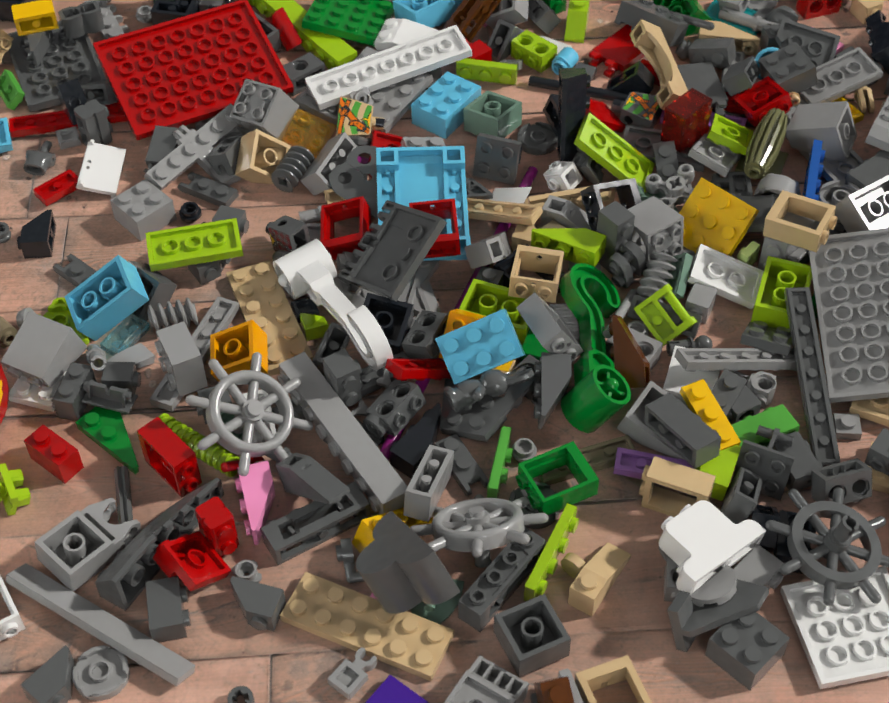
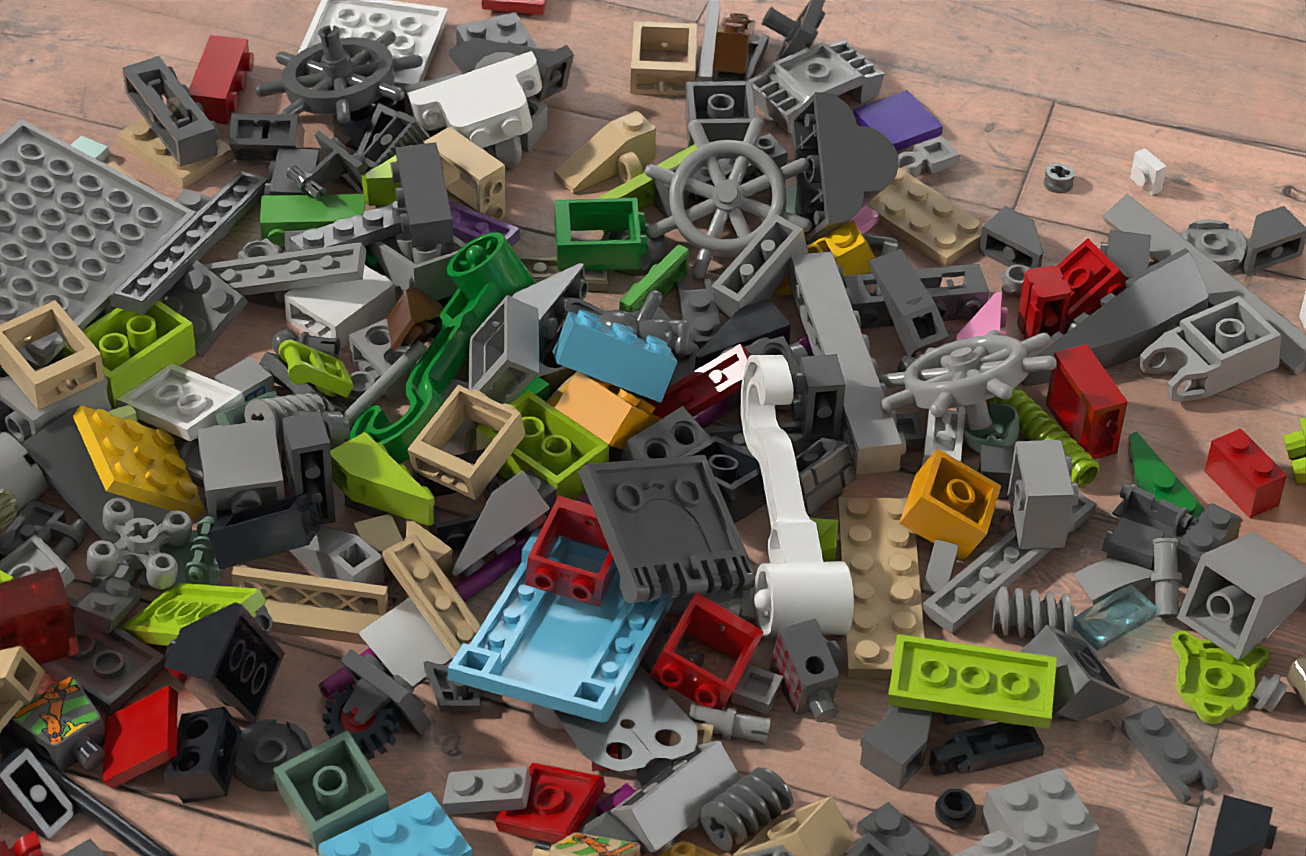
camera: 160 degrees left, 5 degrees down
(106, 298) = (1136, 639): medium azure brick -> none
(123, 494) = (1156, 405): dark grey axle -> none
(524, 449) = (608, 297): light grey plate -> none
(562, 176) = (299, 633): white brick -> none
(703, 403) = (374, 208): yellow plate -> none

